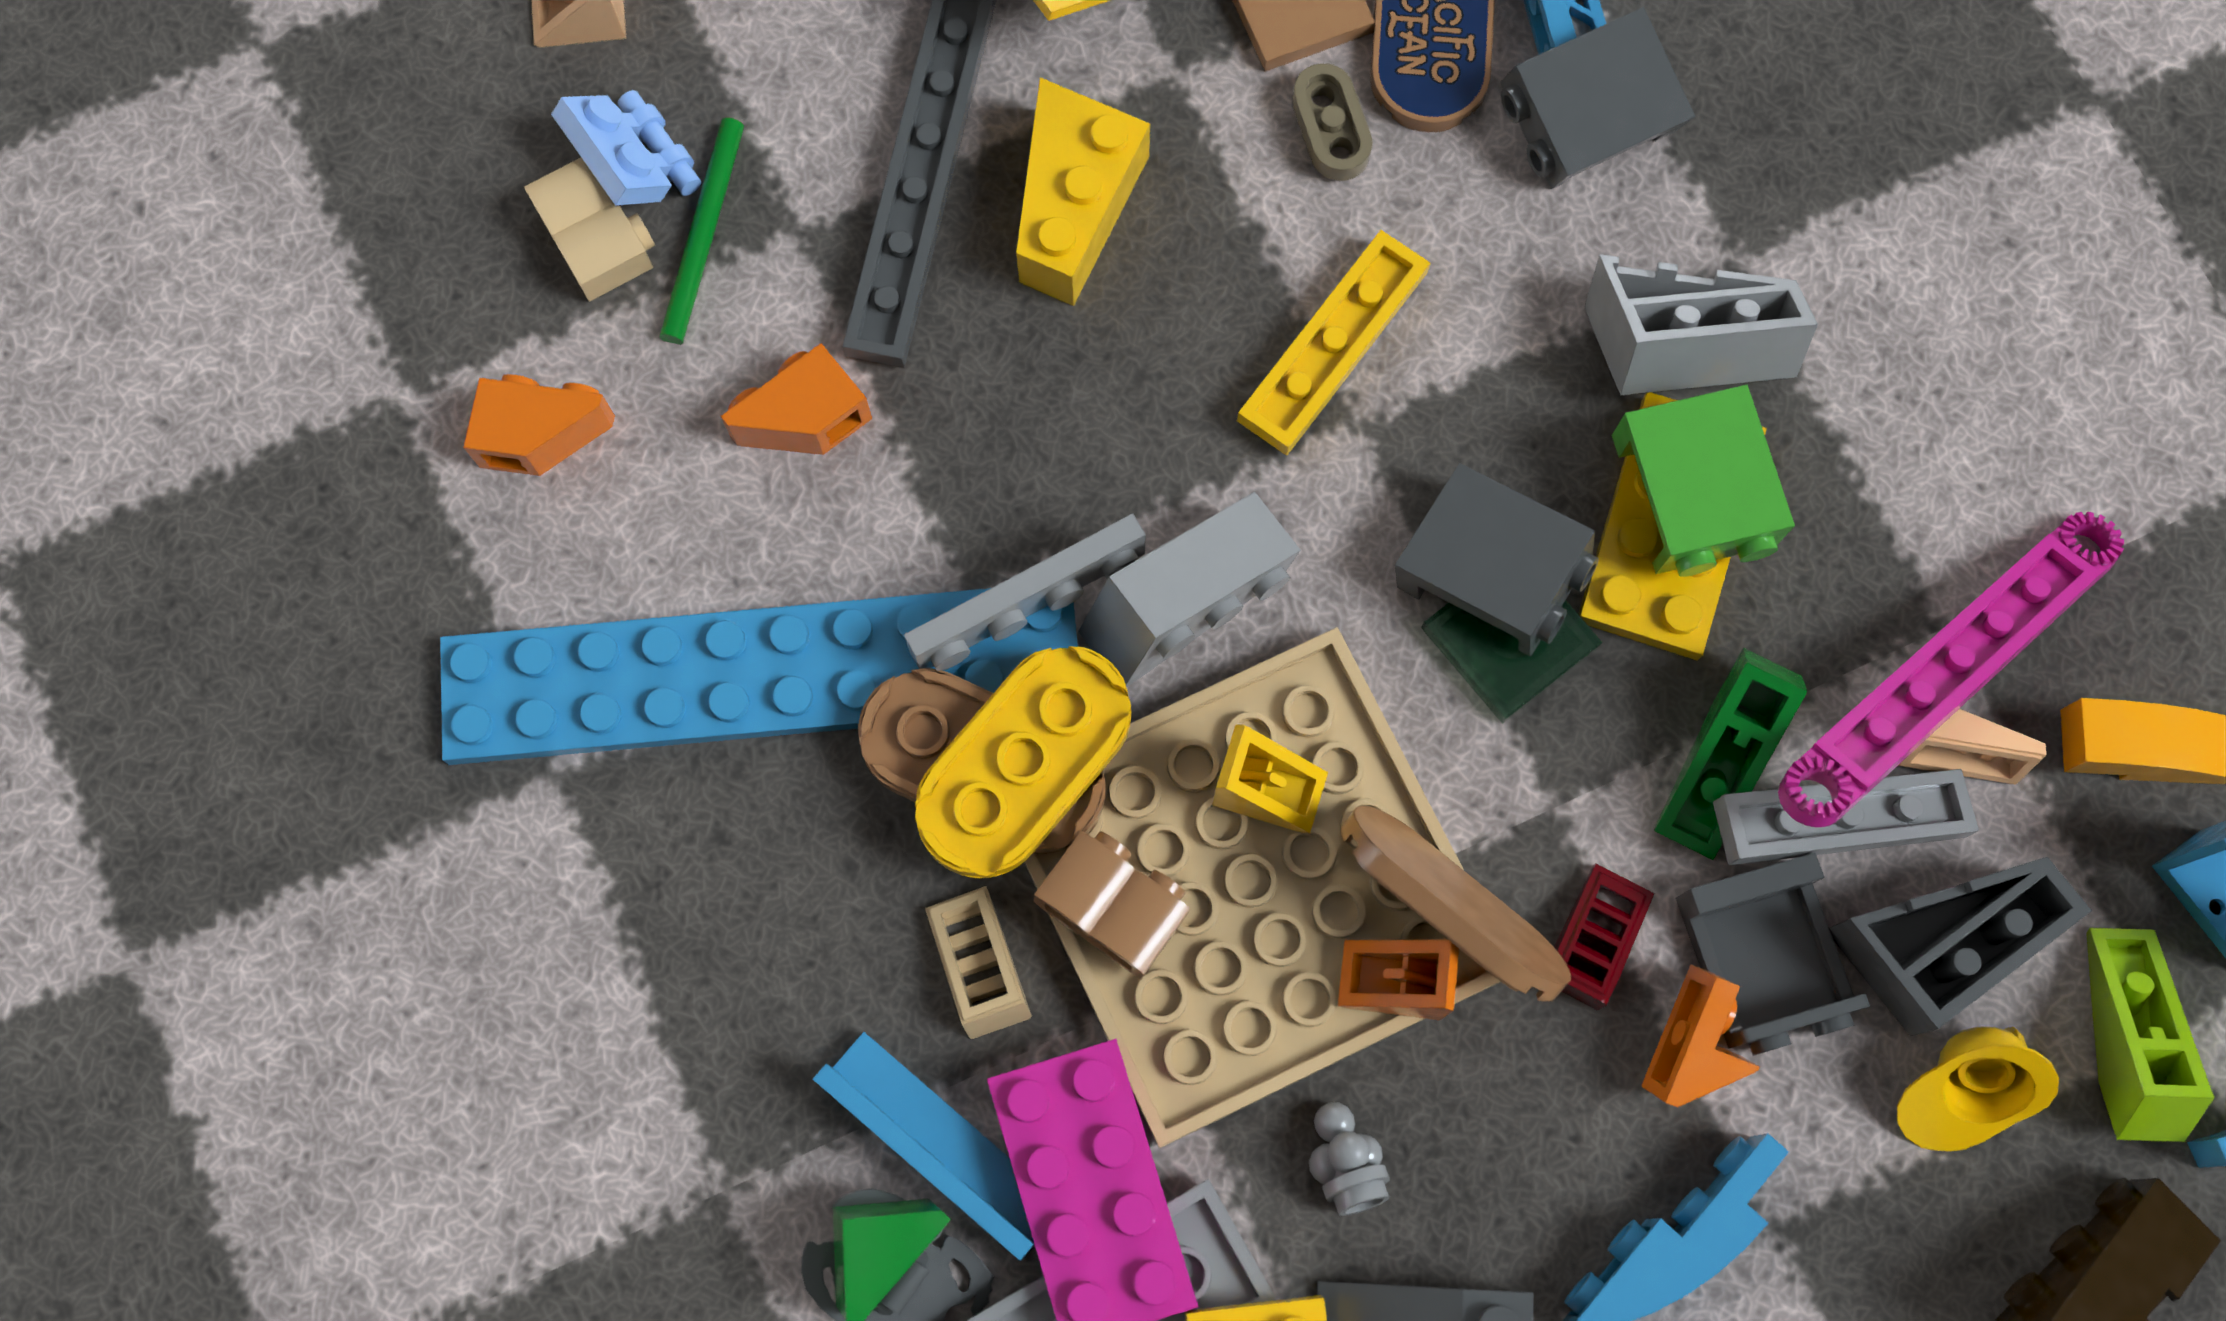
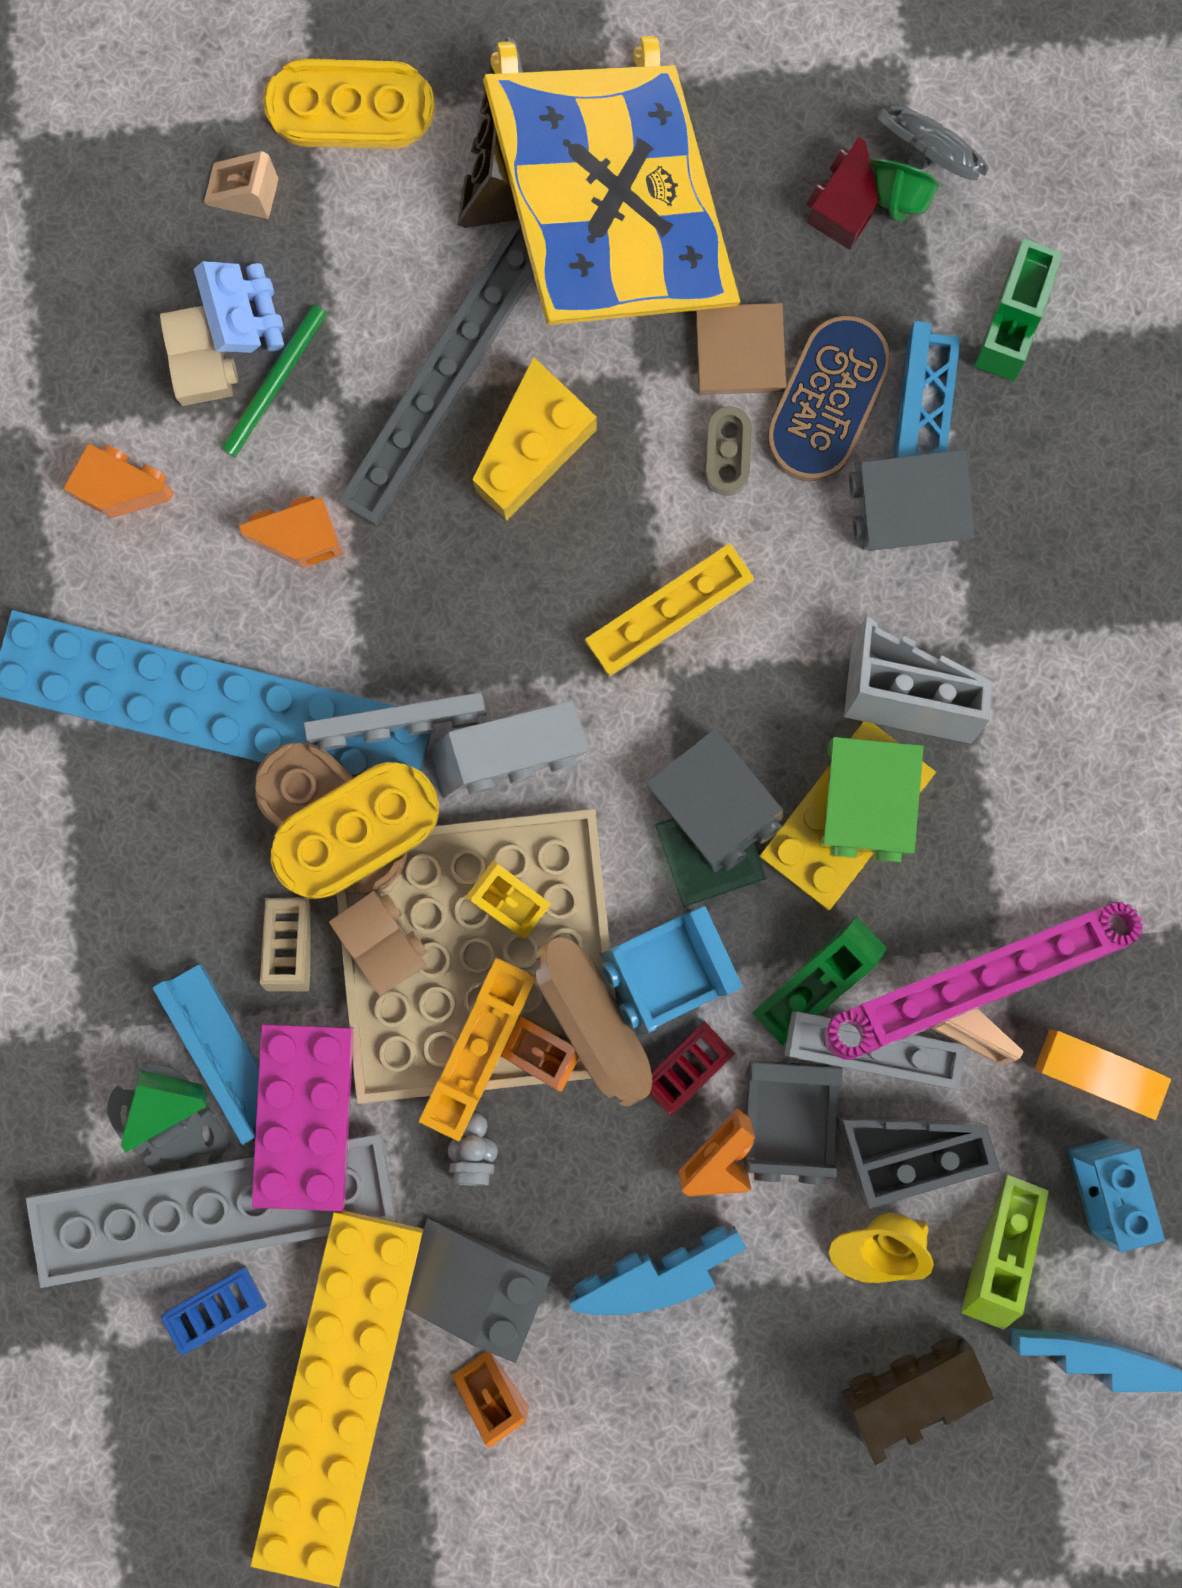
camera: 20 degrees right, 10 degrees up
(1305, 1002) = (478, 1049): none -> light orange slope
(1526, 805) = (669, 970): none -> dark azure panel

